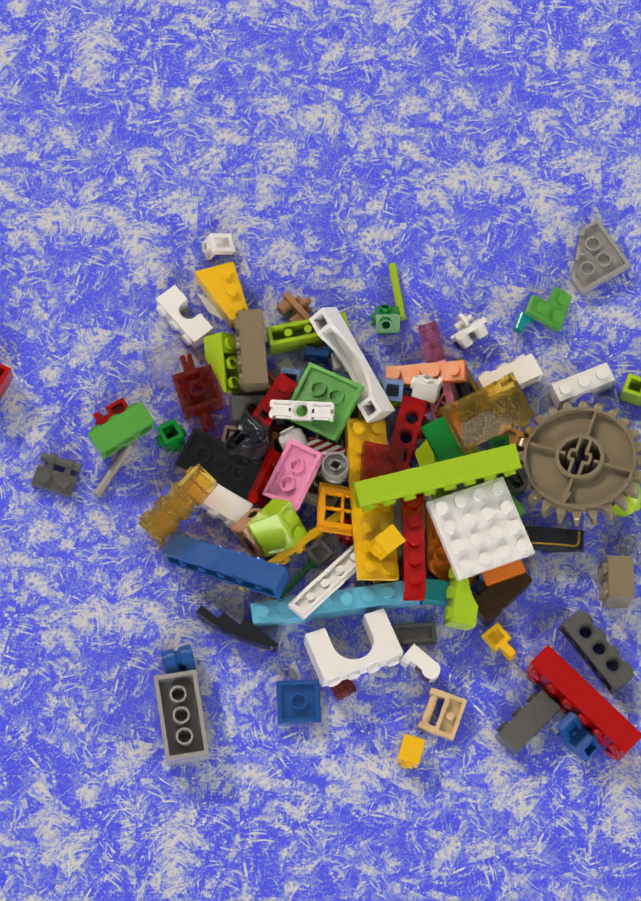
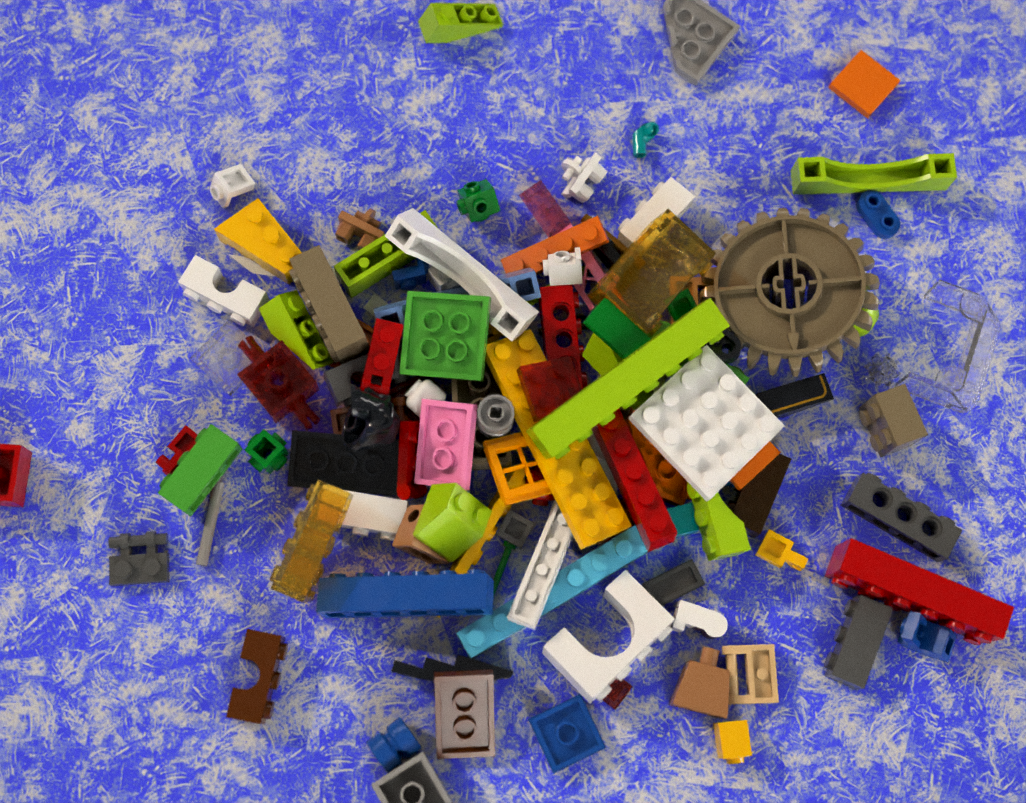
camera: 25 degrees left, 5 degrees up
(97, 597) = (255, 703): none -> reddish brown arch
(233, 659) = (464, 714): none -> plate
(287, 408) = (442, 350): white piece -> none
(324, 447) = (470, 393): sticker -> none
(386, 542) = (600, 488): yellow brick -> none
(396, 290) = (473, 157): lime bar -> none
(405, 708) = (703, 686): none -> medium nougat torso
(423, 187) = (457, 21): none -> lime slope
(551, 312) = (671, 117): bright green plate -> none
(592, 380) = (744, 193): white arch -> none

